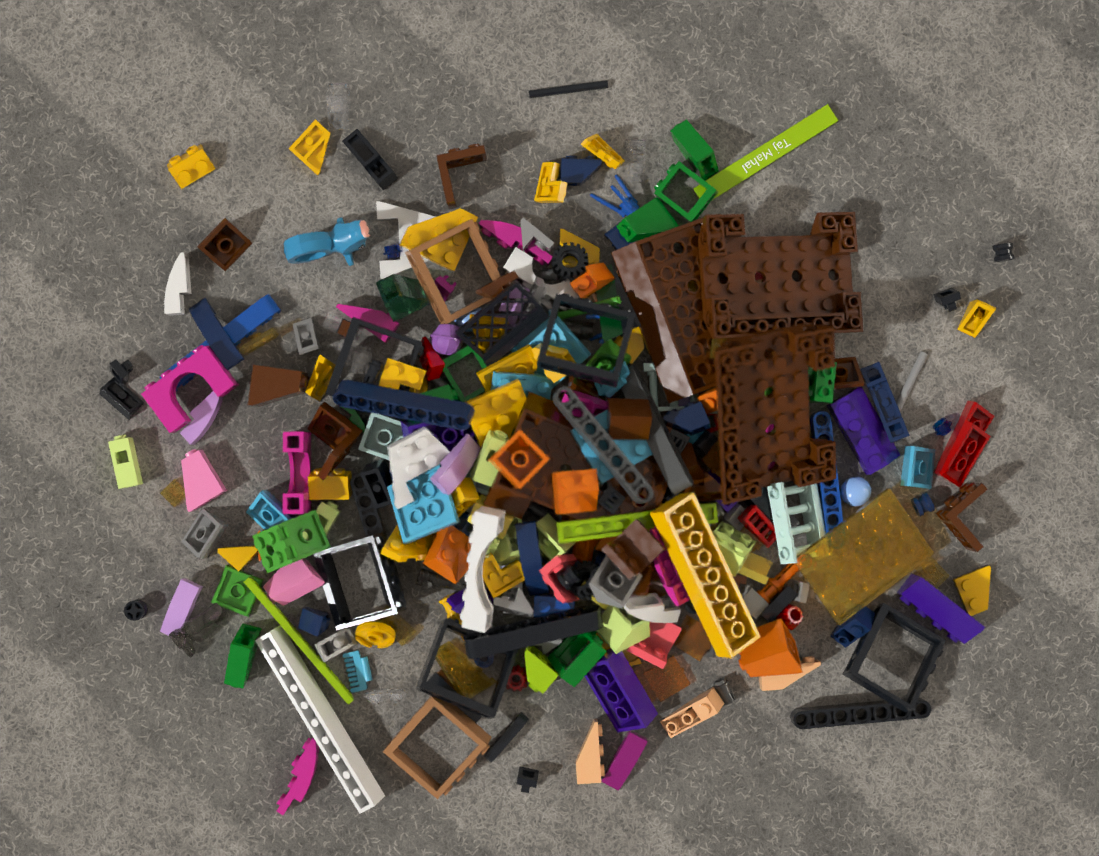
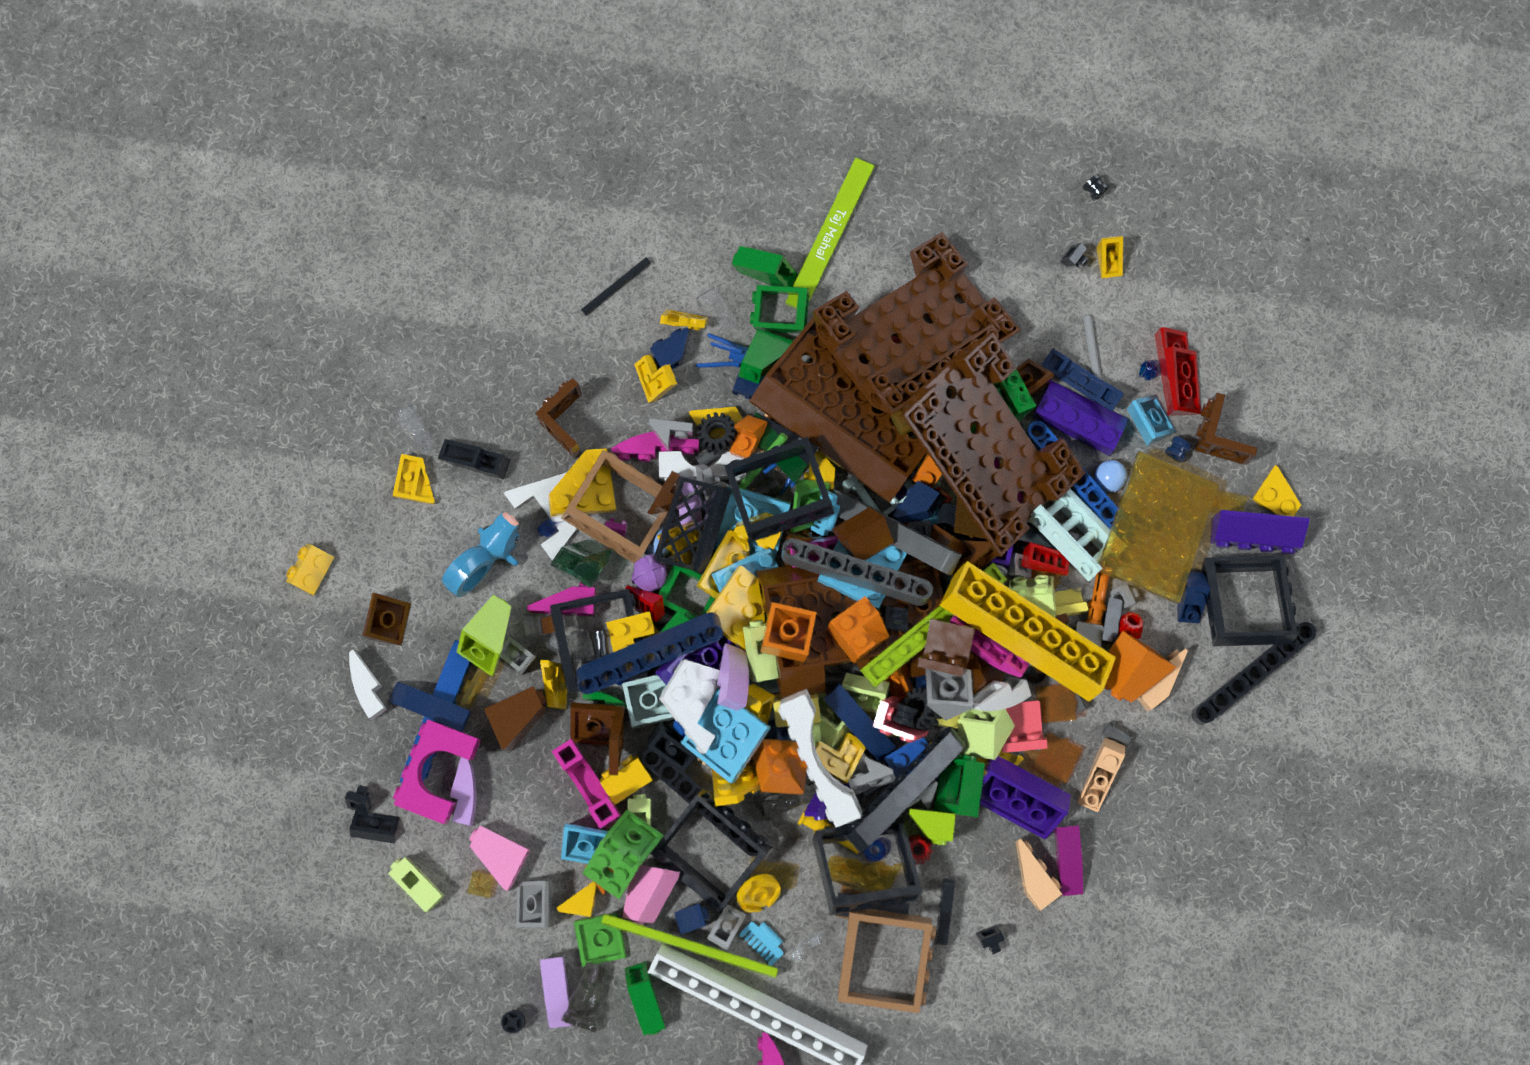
camera: 30 degrees left, 10 degrees down
(290, 306) = (485, 634): none -> lime slope

